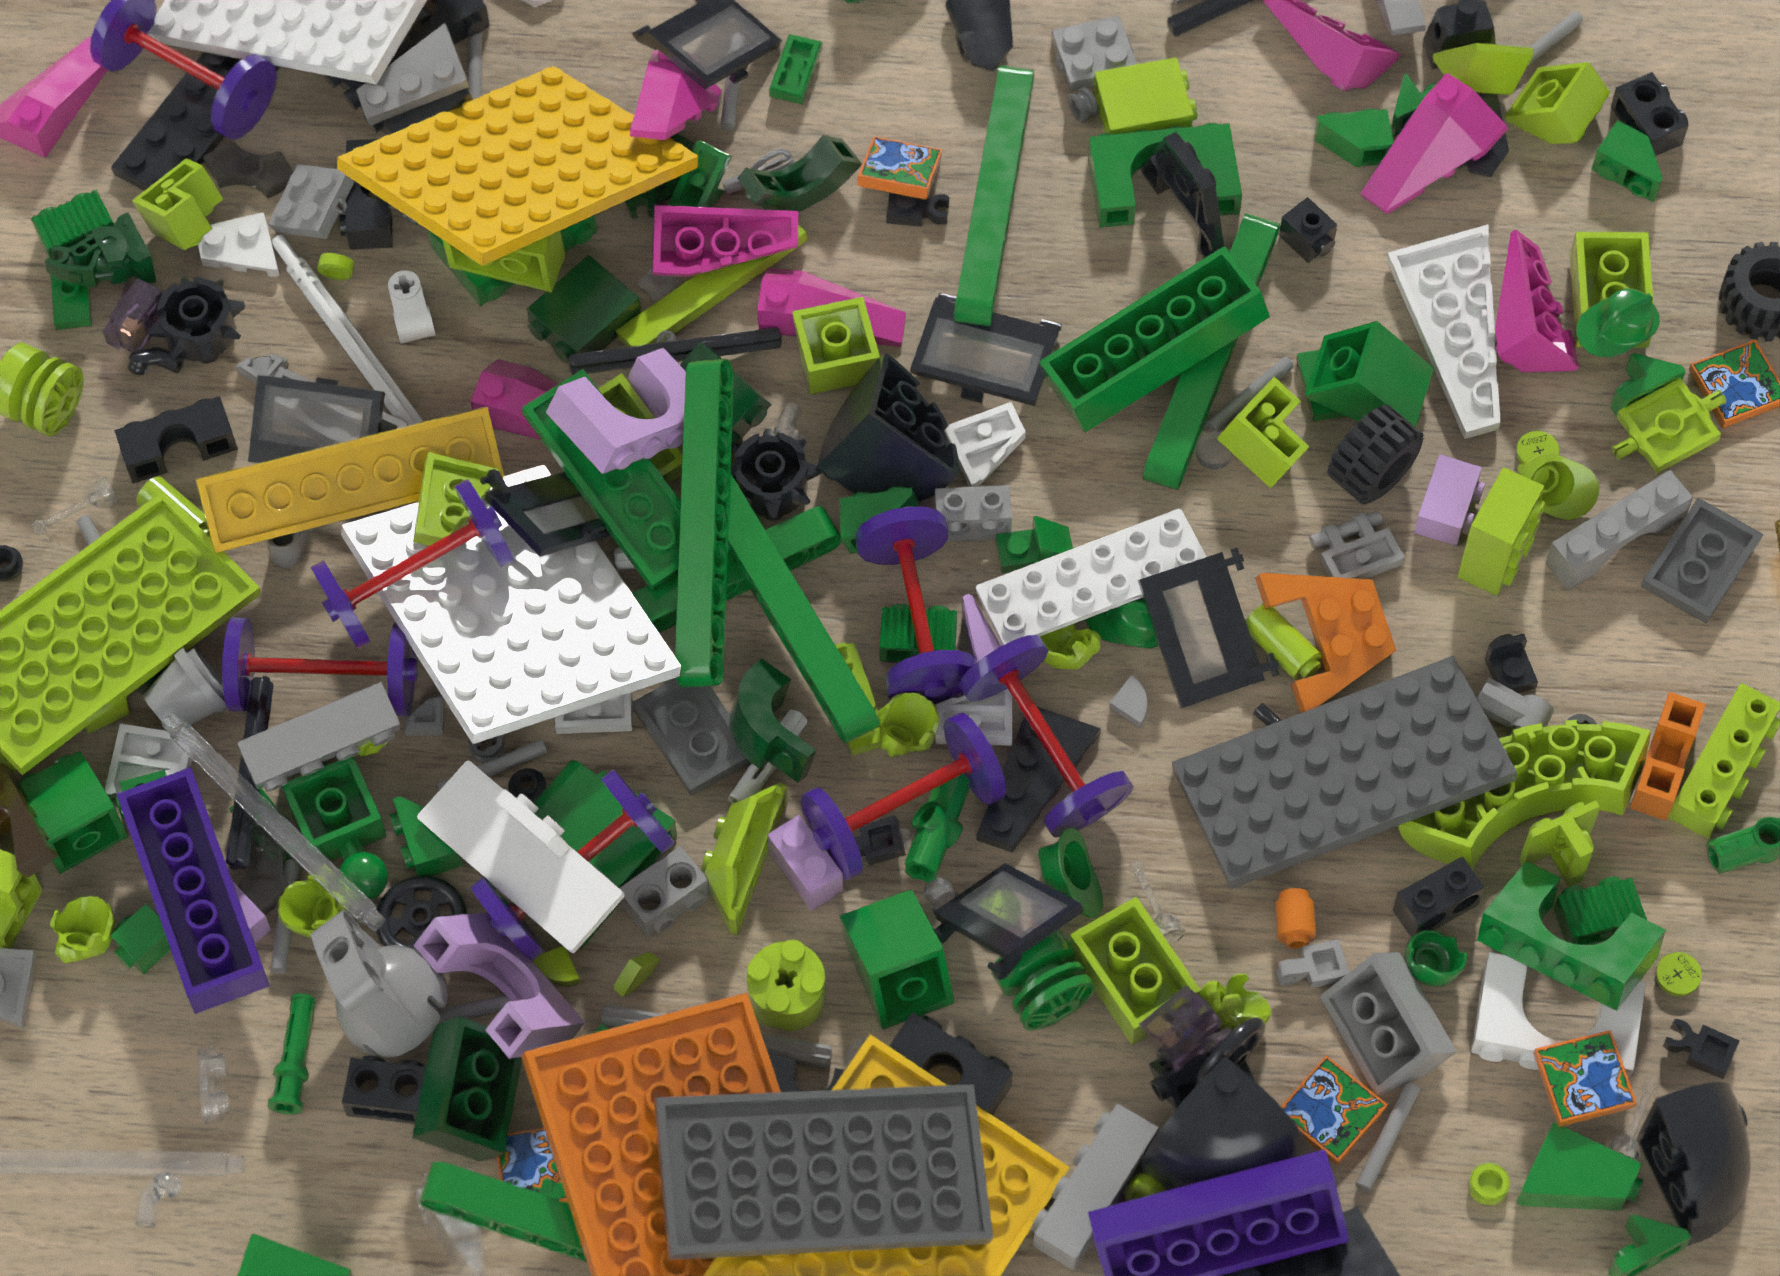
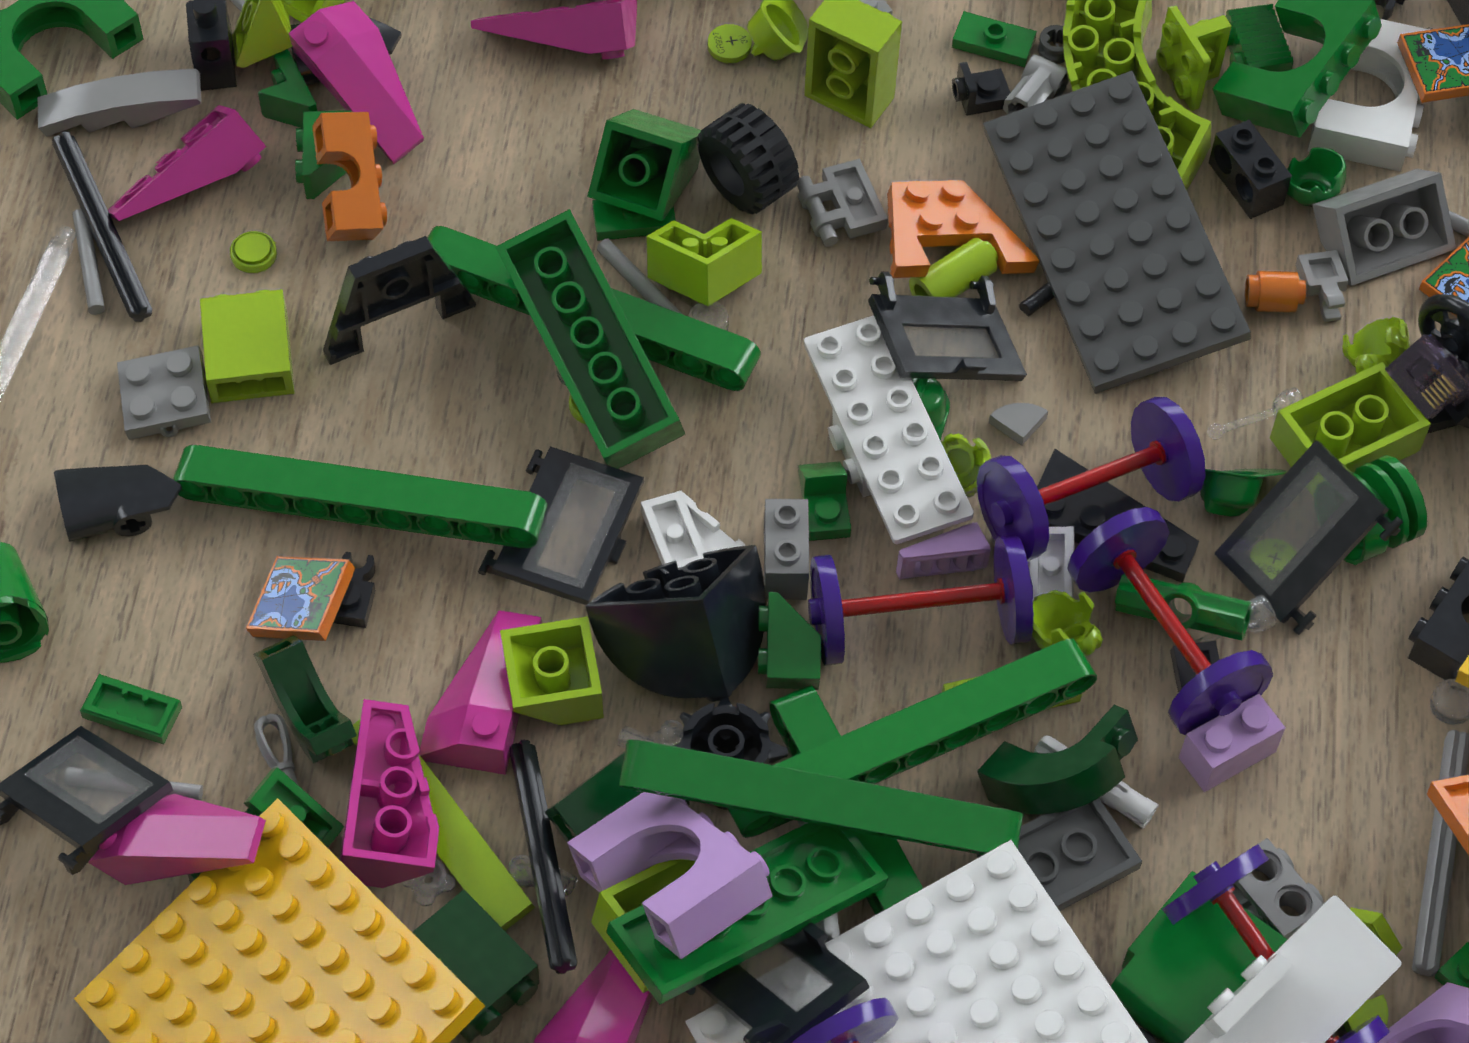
camera: 90 degrees left, 5 degrees down
(742, 851) = (1220, 807): lime wedge -> none
(771, 1000) = (1385, 767): lime brick -> none
(898, 632) = (938, 632): green brick -> none
(898, 958) = (1339, 655): green slope -> none
(1083, 104) = (238, 406): dark grey bush -> none
(1119, 156) = (324, 378): green arch -> none
(1250, 101) = (253, 252): none -> lime piece
(1308, 230) = (442, 203): black brick -> none
(1346, 141) = (350, 143): none -> orange arch
(1448, 500) = (800, 114): lavender brick -> none
(1453, 312) = (565, 92): white wing -> none
(1578, 678) = (994, 39): none -> green plate

